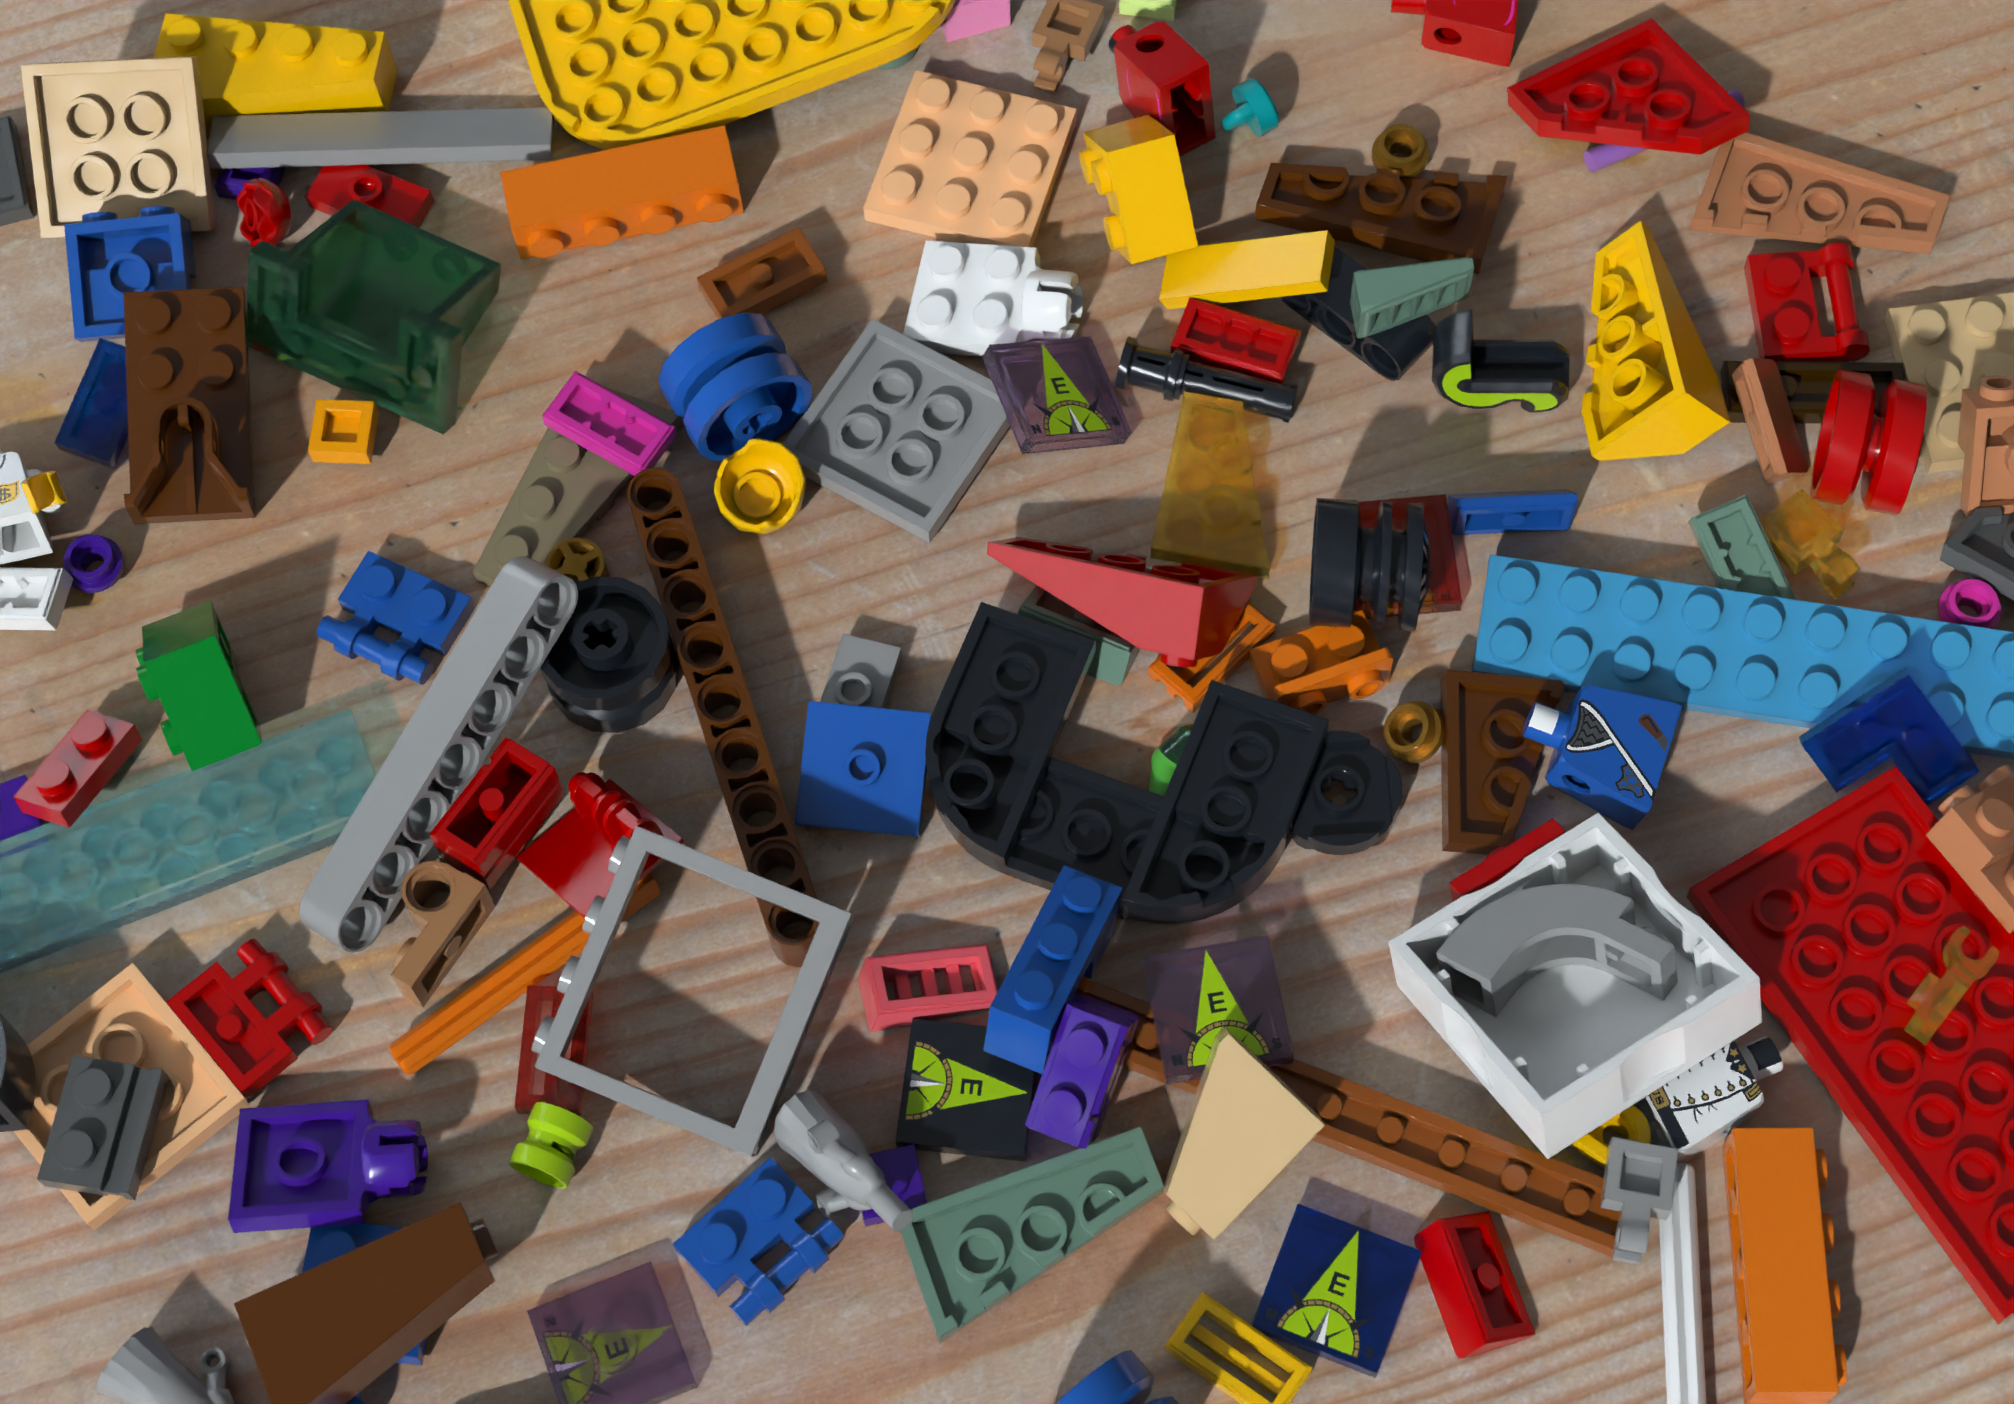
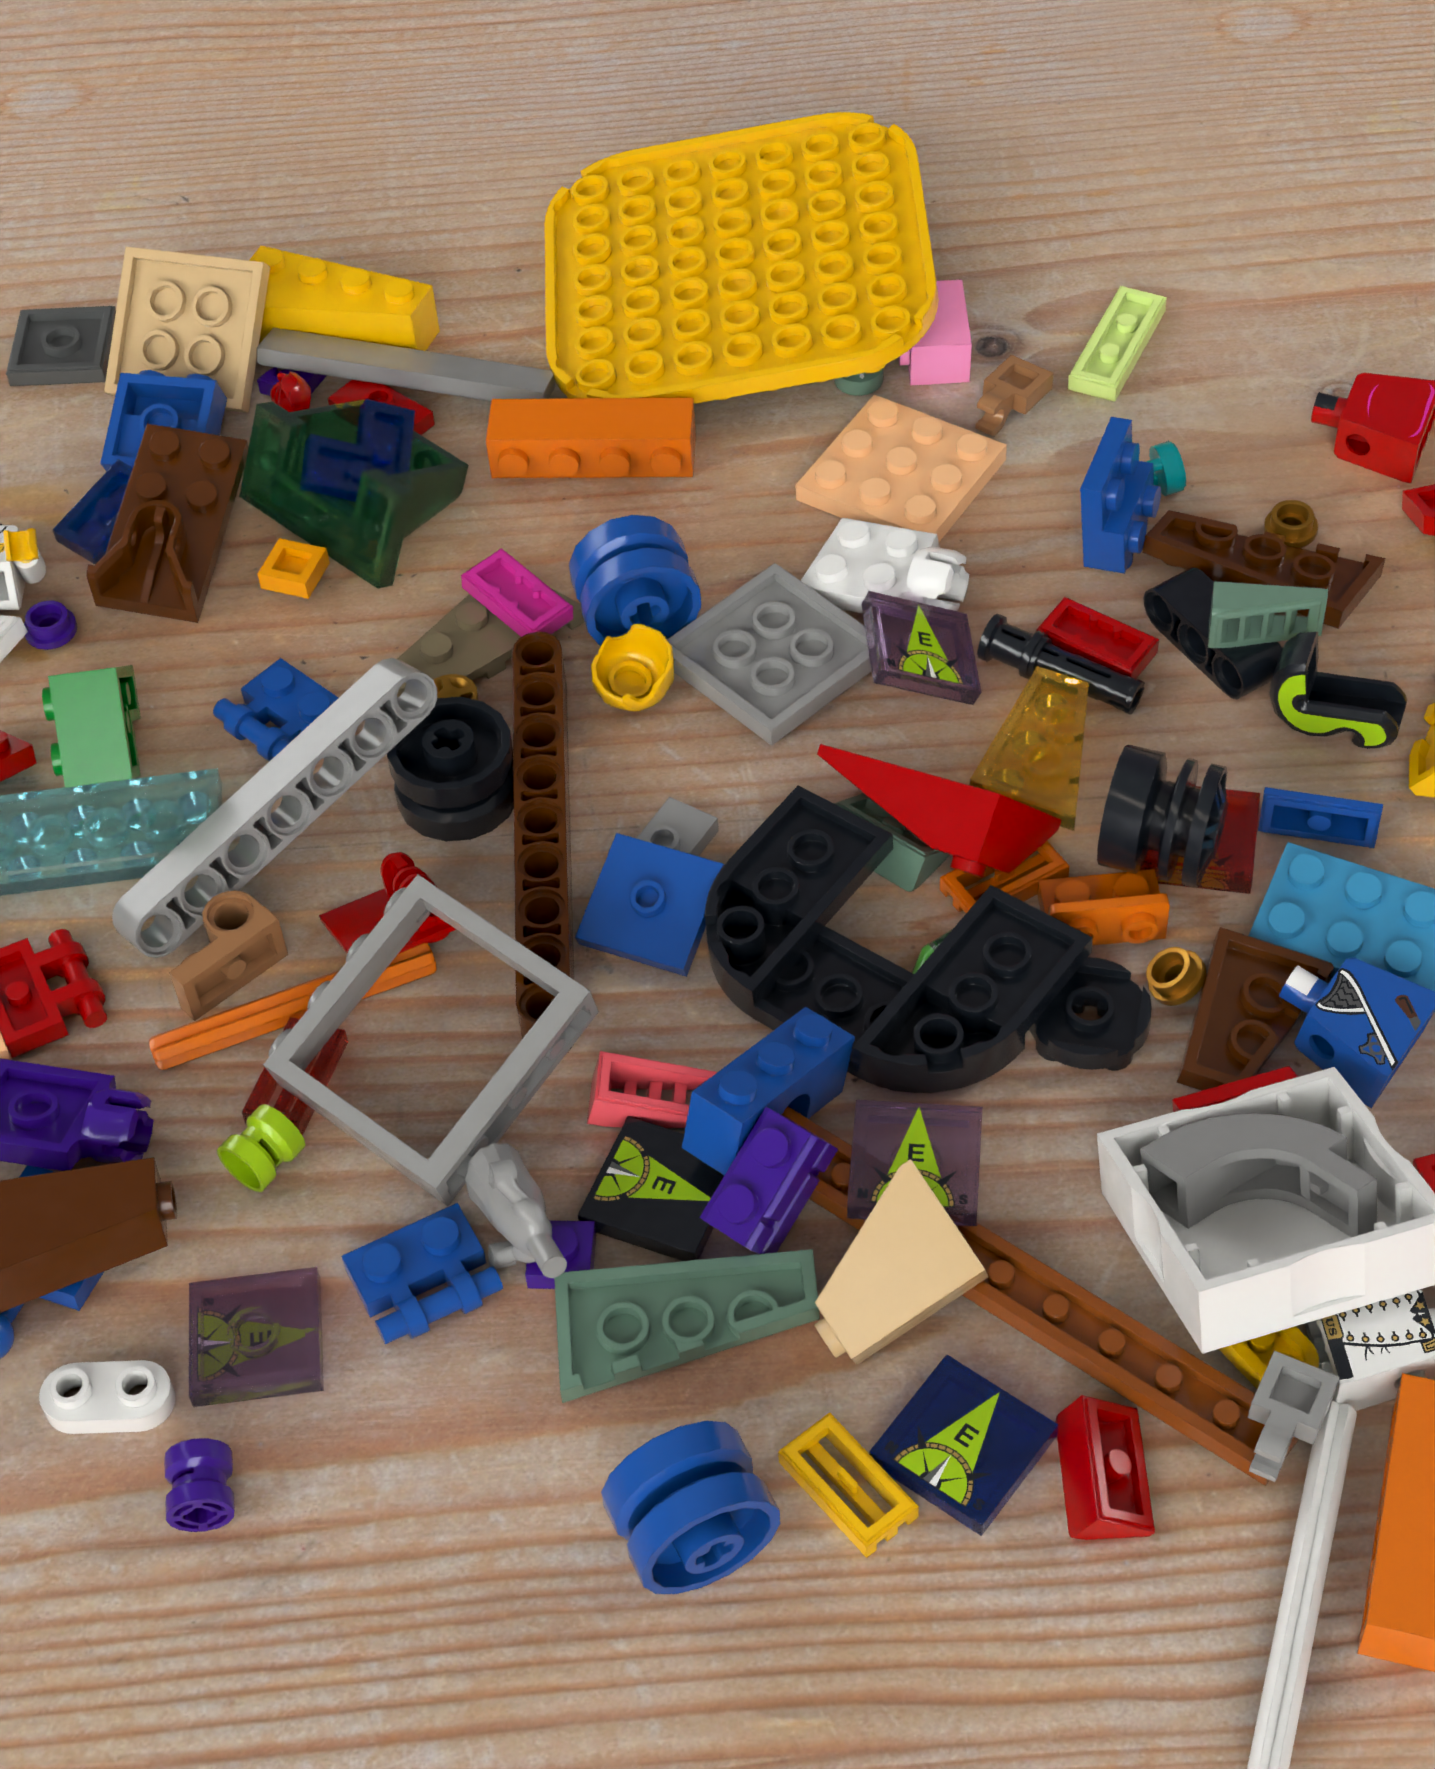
camera: 15 degrees right, 15 degrees down
(399, 280) = (382, 443): none -> clear blue plate
(497, 813) = (313, 868): red brick -> none
(763, 277) = (701, 516): dark orange plate -> none
(1144, 185) = (1044, 505): yellow brick -> none
(1165, 80) = (1077, 424): red torso -> none
(1220, 170) = (1117, 500): none -> blue plate
(1249, 270) = (1124, 580): yellow tile -> none

